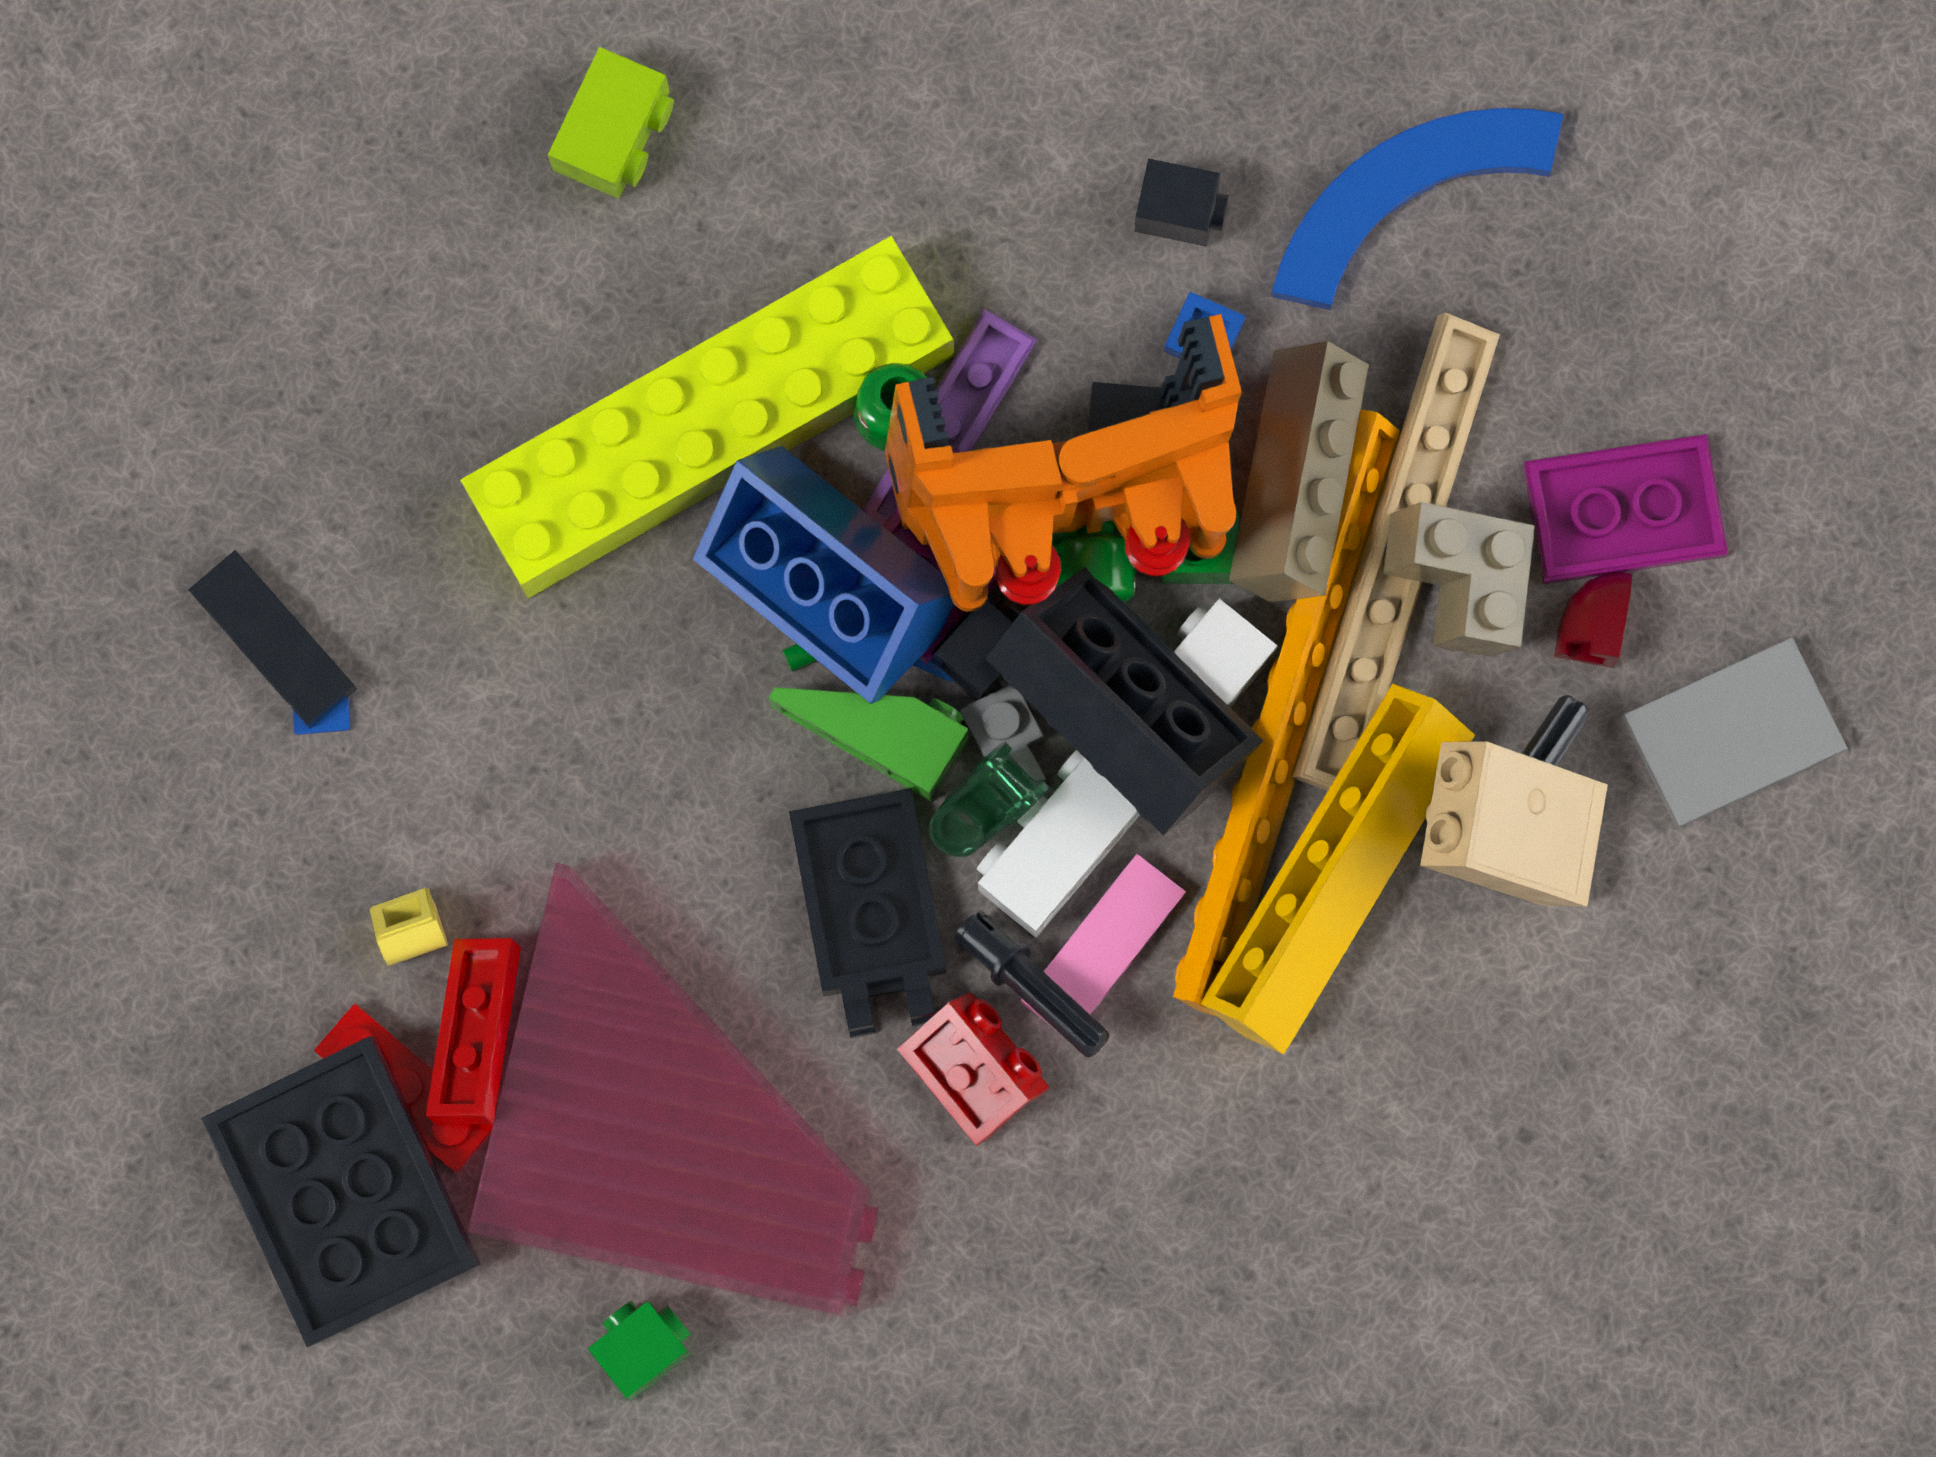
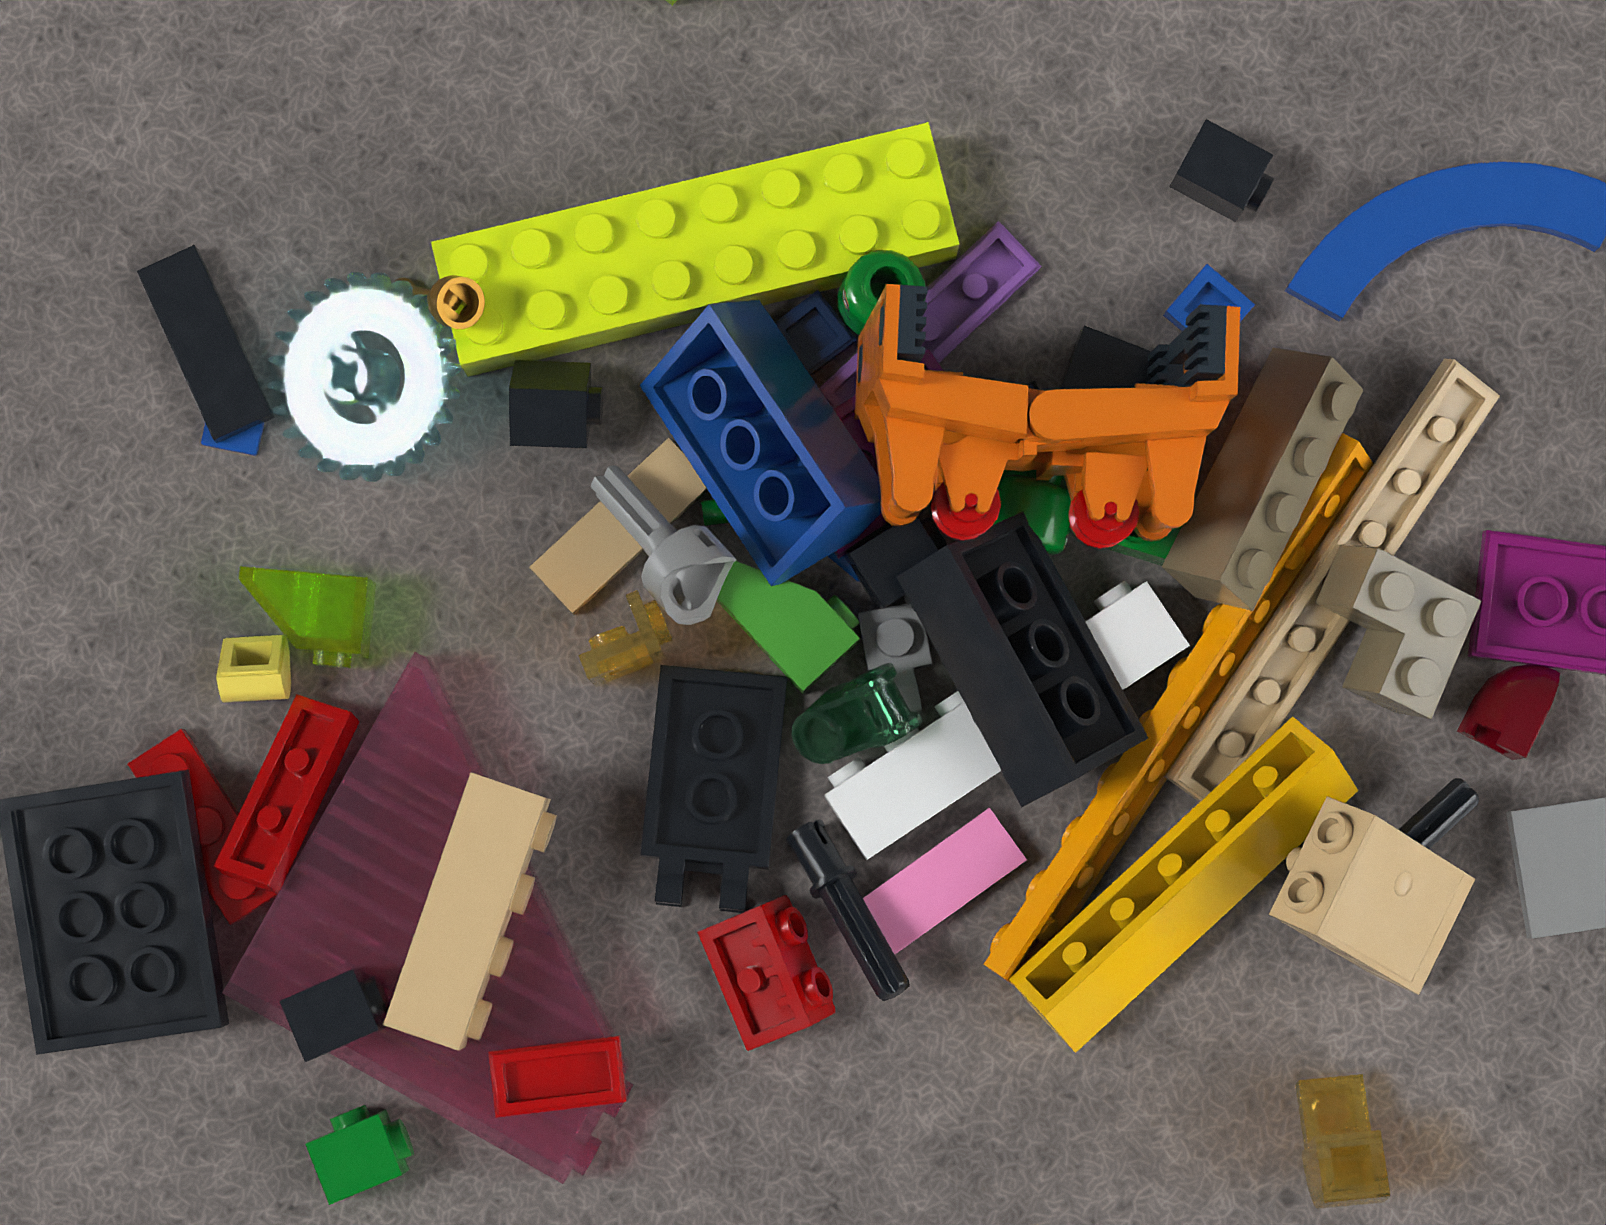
camera: 10 degrees right, 5 degrees up
(394, 619) = (334, 366): none -> clear light blue gear
(451, 854) = (317, 611): none -> clear neon green slope
(489, 527) = (448, 295): none -> pearl gold hinge
(582, 1212) = (336, 1012): none -> black brick
(617, 597) = (553, 404): none -> black brick
(679, 1082) = (468, 913): none -> tan brick
(713, 695) = (600, 545): none -> tan tile
(752, 807) = (618, 653): none -> clear yellow bracket
(783, 707) = (683, 564): none -> light grey piece
(805, 1214) = (557, 1076): none -> red tile
(843, 461) = (815, 332): none -> dark blue tile
(1555, 1064) = (1340, 1152): none -> clear yellow brick

